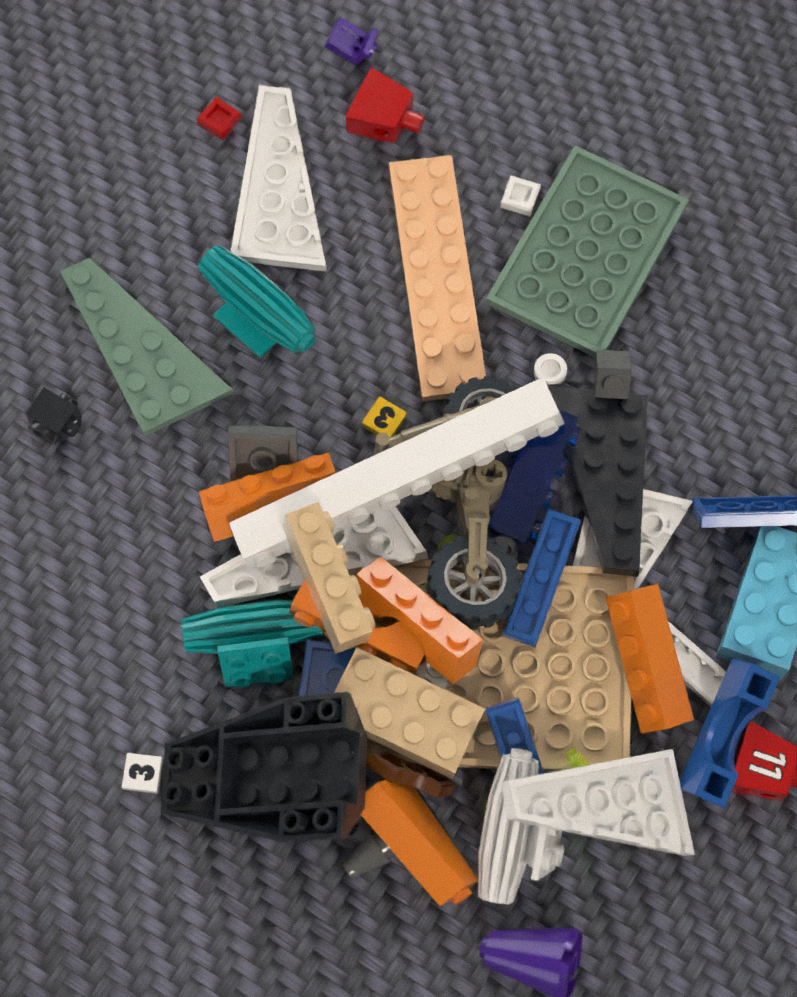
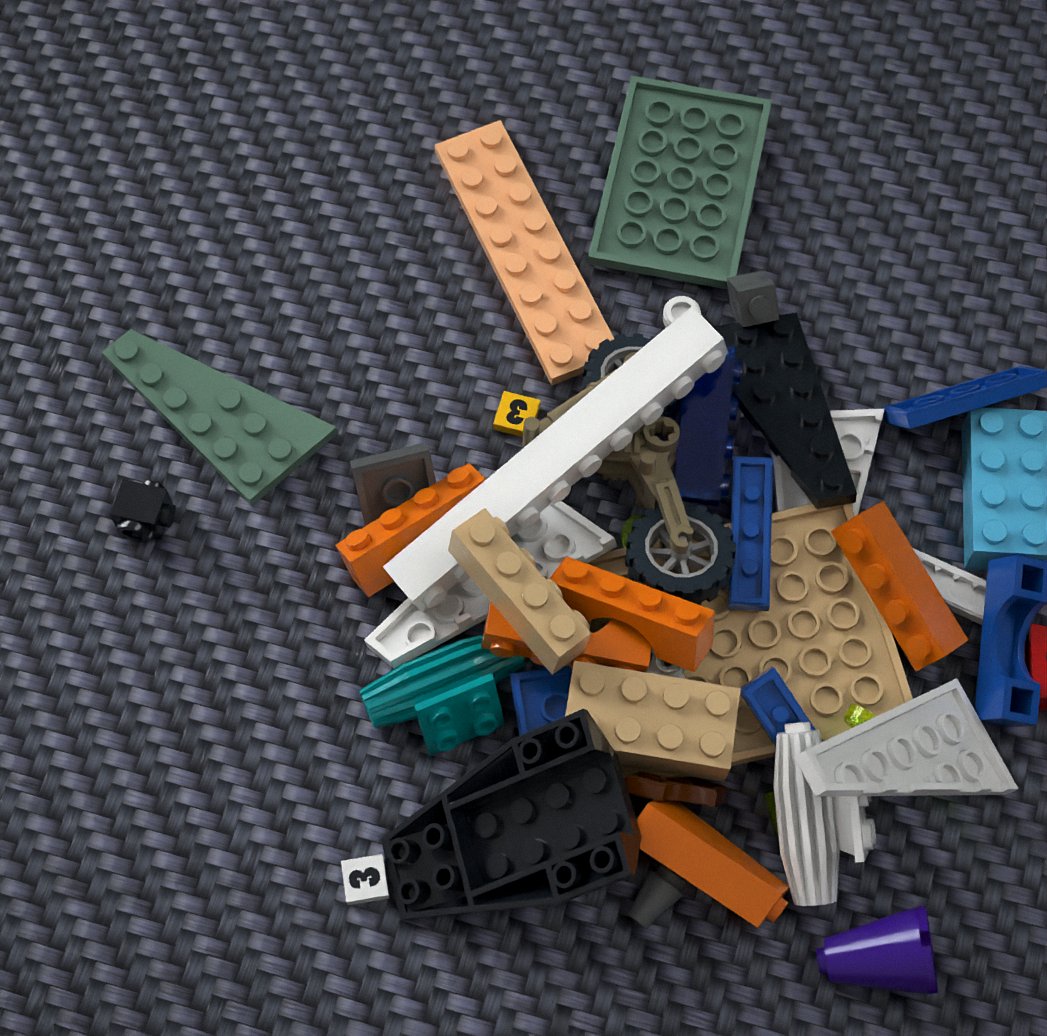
camera: 15 degrees left, 5 degrees down
(219, 118) = (231, 147): red tile -> none
(254, 306) = (337, 328): teal plate -> none
(276, 203) = (322, 215): white wing -> none
(351, 41) = (353, 31): dark purple bracket -> none
(382, 109) = (410, 91): red torso -> none
(520, 196) = (588, 143): white tile -> none

